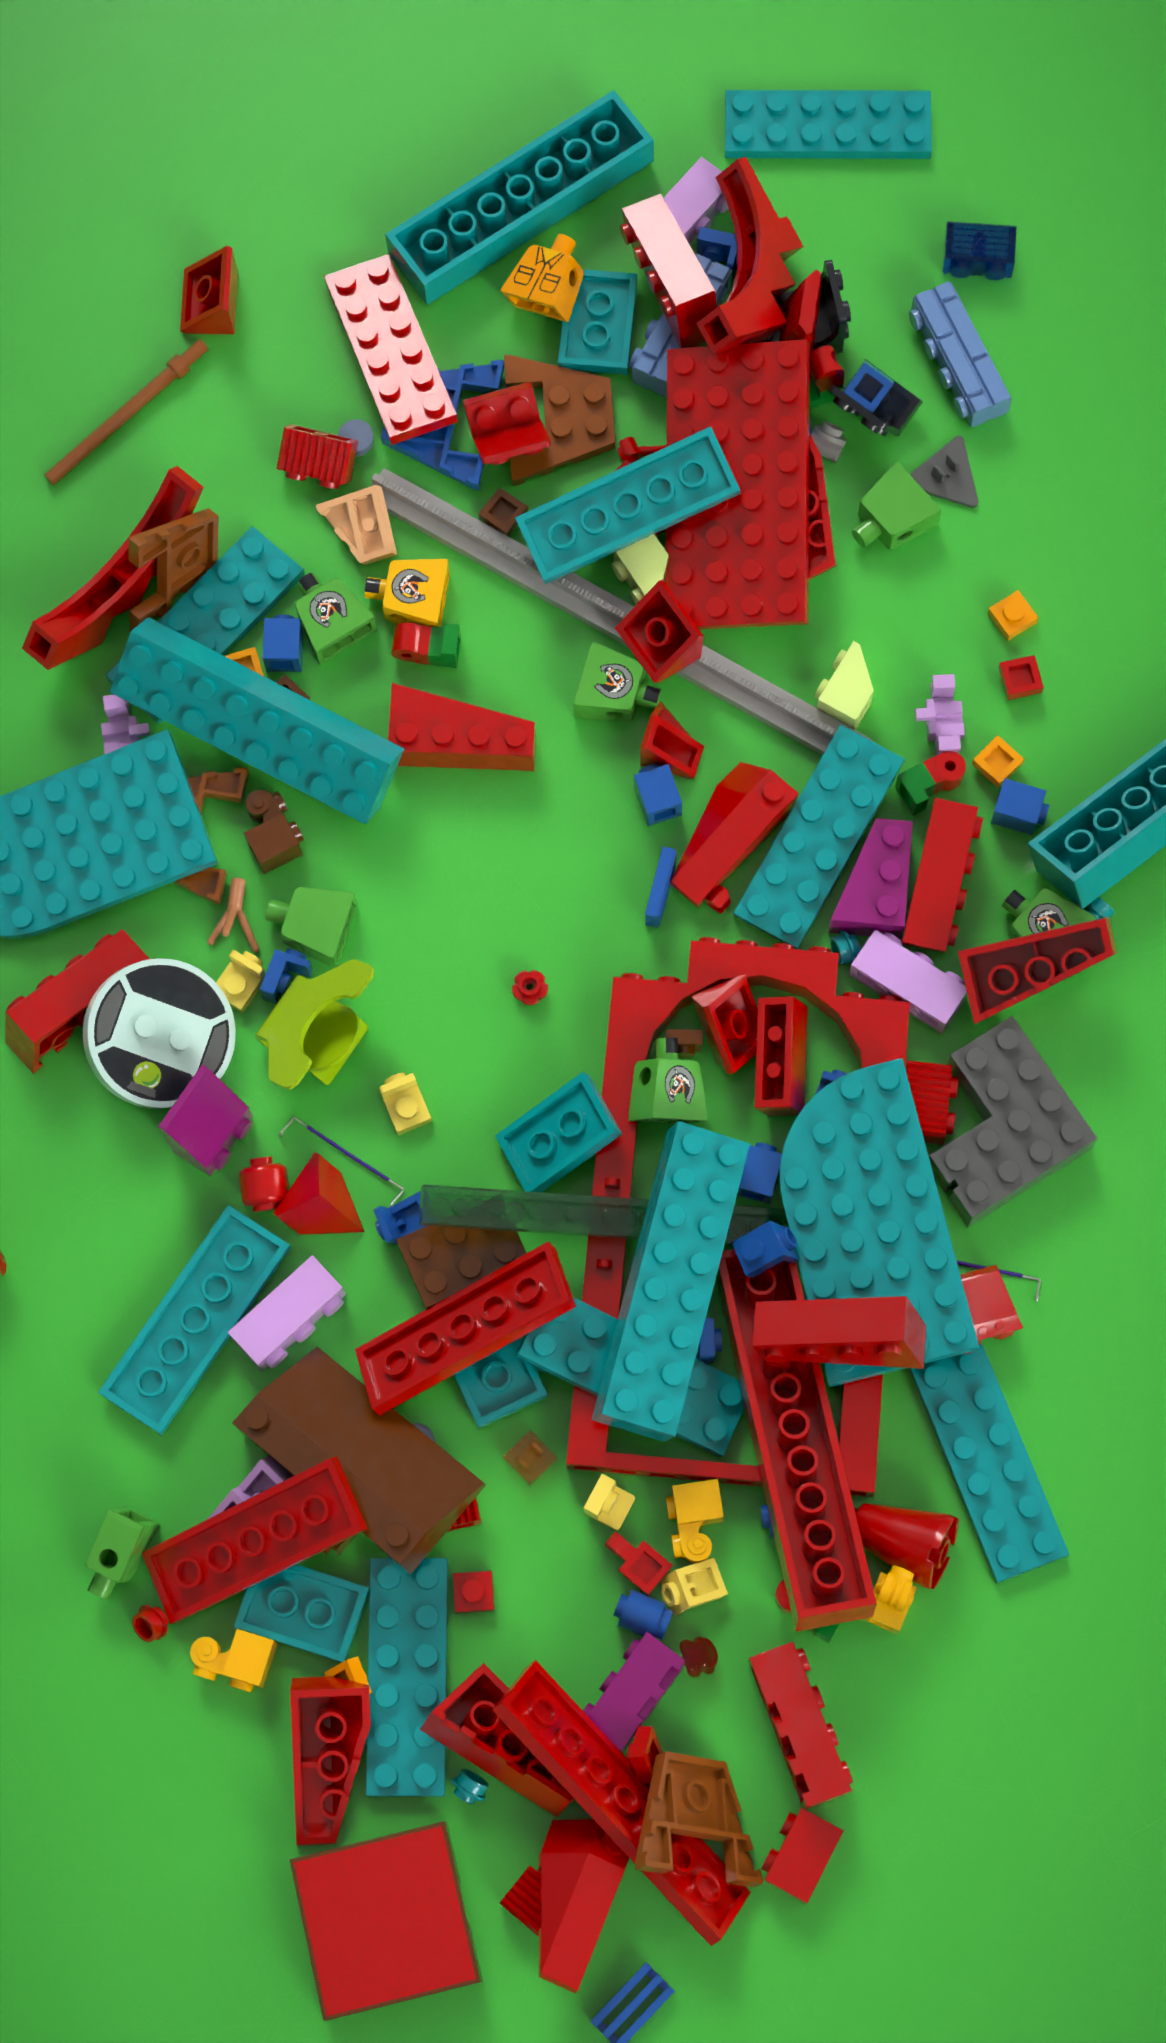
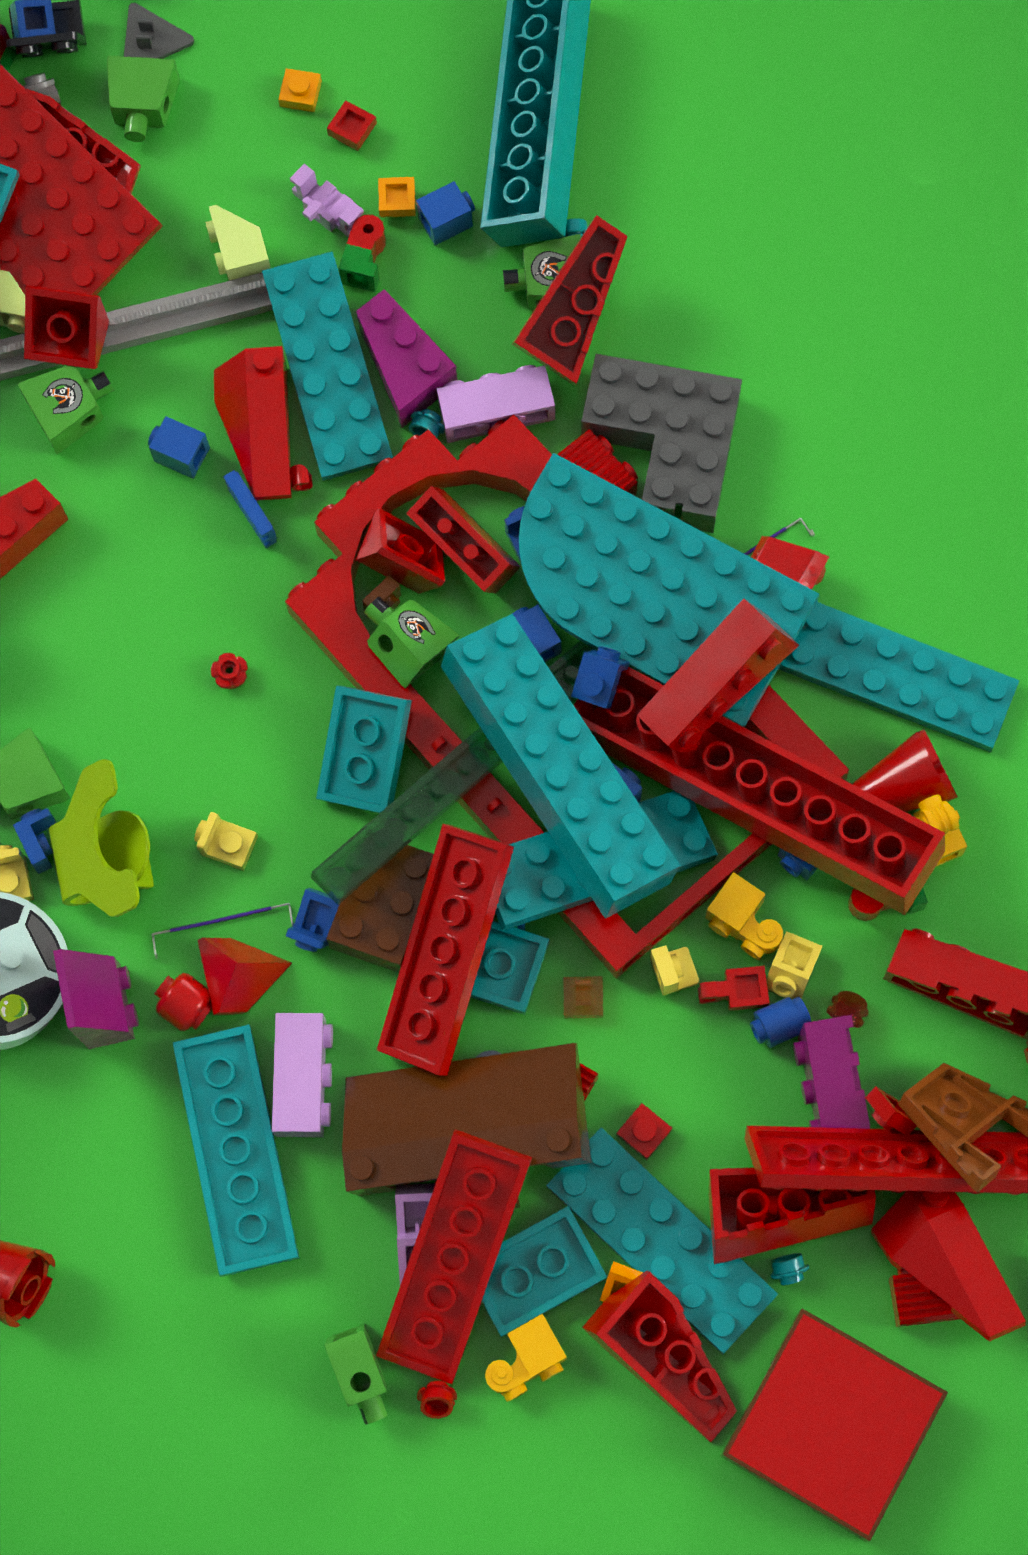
camera: 45 degrees left, 0 degrees up
(670, 744) = (150, 404): red slope -> none
(941, 874) = (441, 305): red wedge -> none

